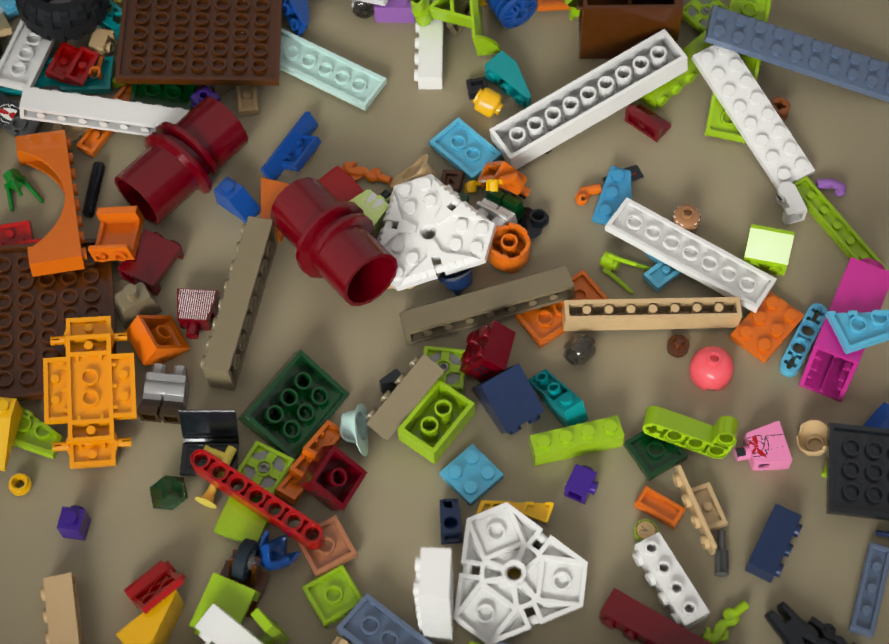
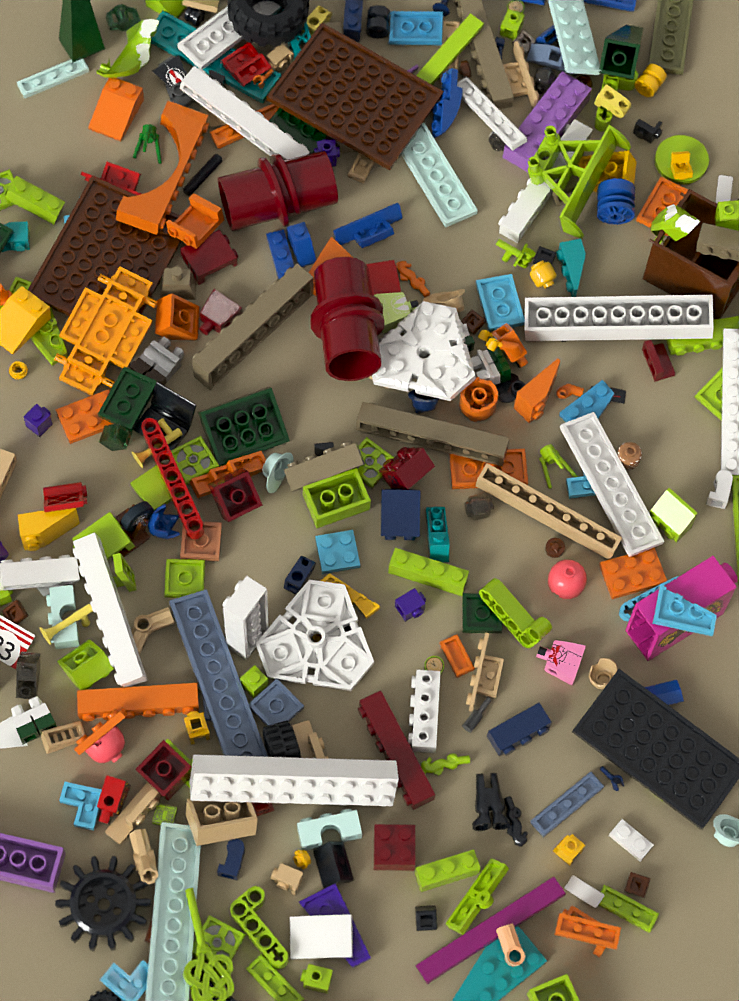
camera: 25 degrees right, 5 degrees up
(125, 488) = (81, 417): none -> orange plate
(157, 445) = (127, 398): none -> dark green plate
(220, 220) = (280, 252): none -> blue plate
(457, 97) = (523, 257): none -> lime arm
(561, 215) = (534, 395): none -> orange slope

